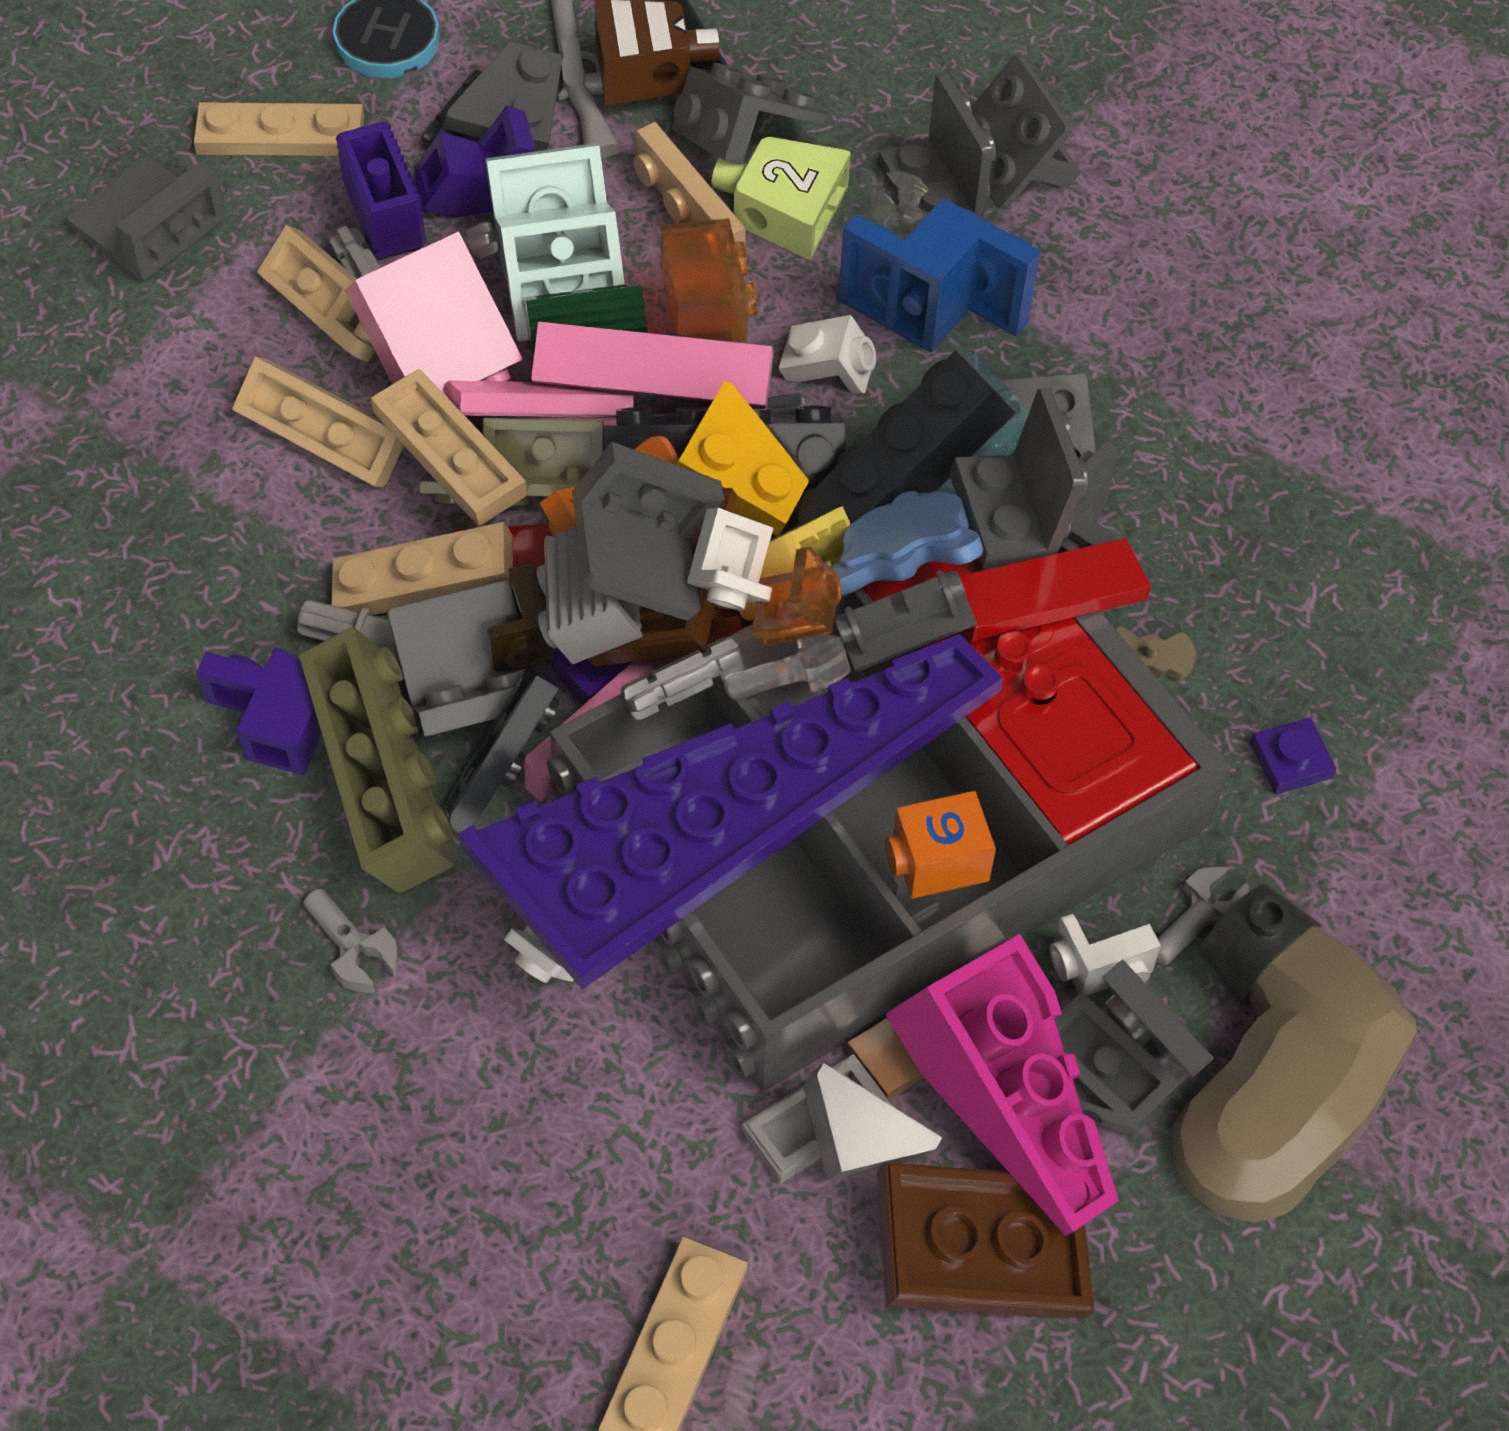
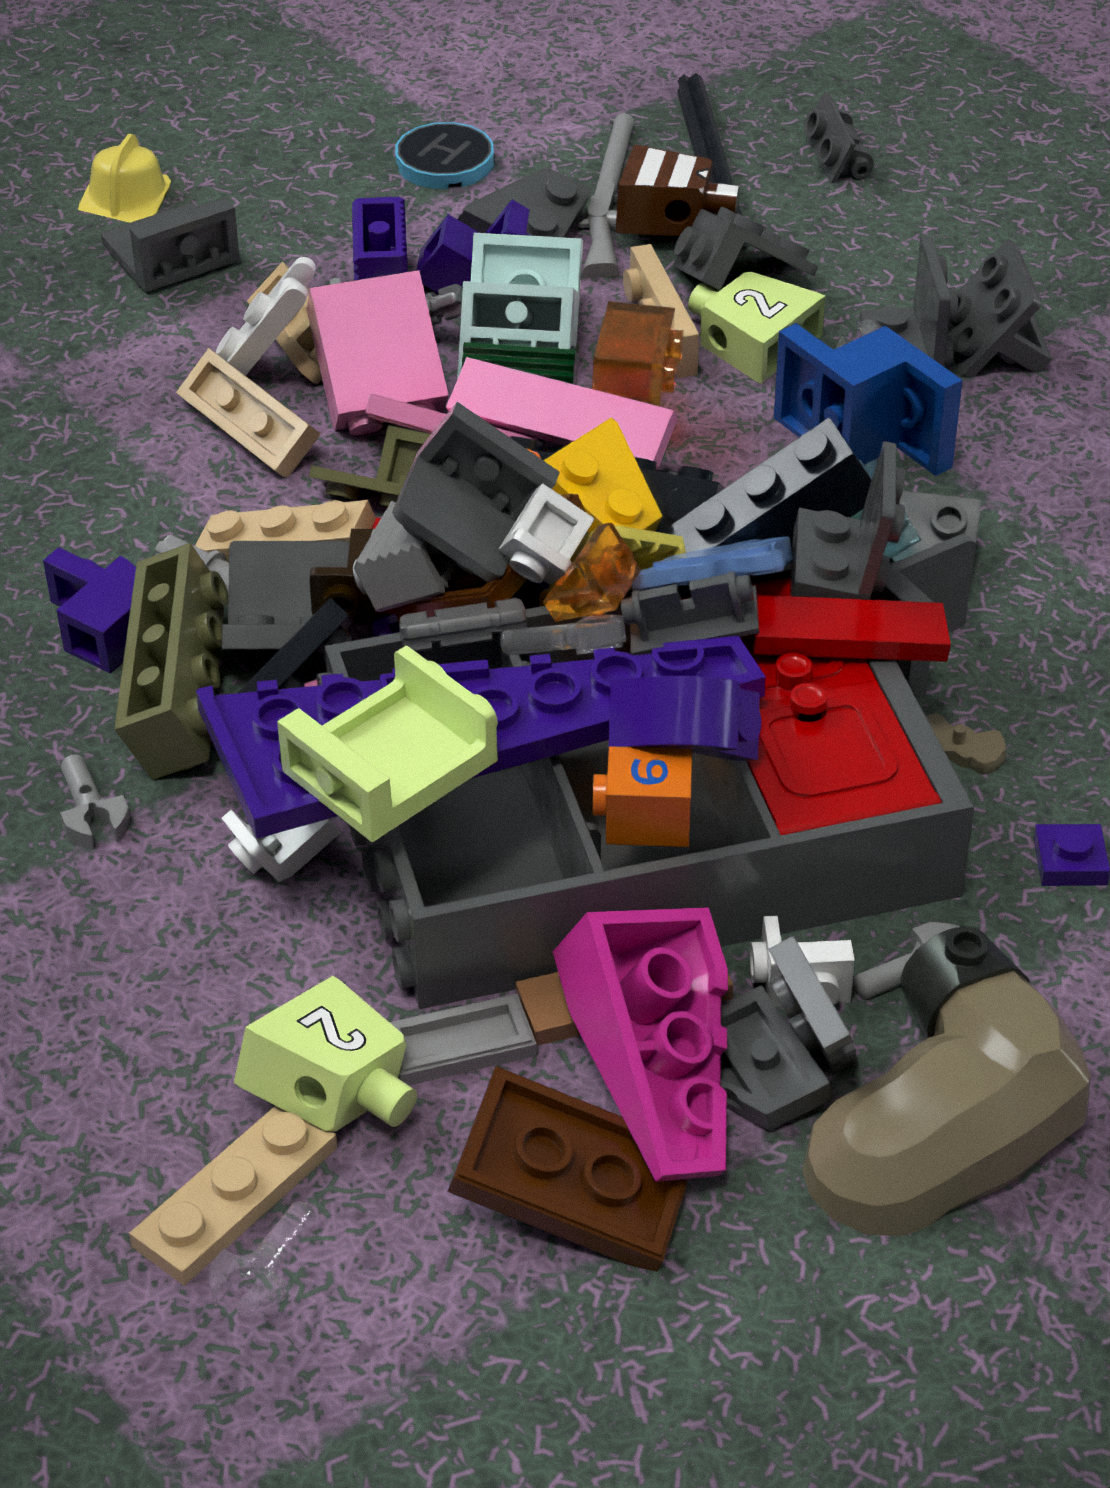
camera: 20 degrees right, 15 degrees down
(65, 145) = (125, 183): none -> light yellow piece
(273, 128) = (300, 202): tan plate -> none
(308, 311) = (267, 317): none -> white hinge
(449, 447) = (346, 438): tan plate -> none
(690, 863) = (393, 747): none -> yellowish green panel
(717, 1189) = (327, 1059): none -> yellowish green torso
(829, 350) = (737, 444): white bracket -> none
(858, 1128) = (491, 1034): slope -> none
(953, 756) = (686, 713): none -> dark purple brick

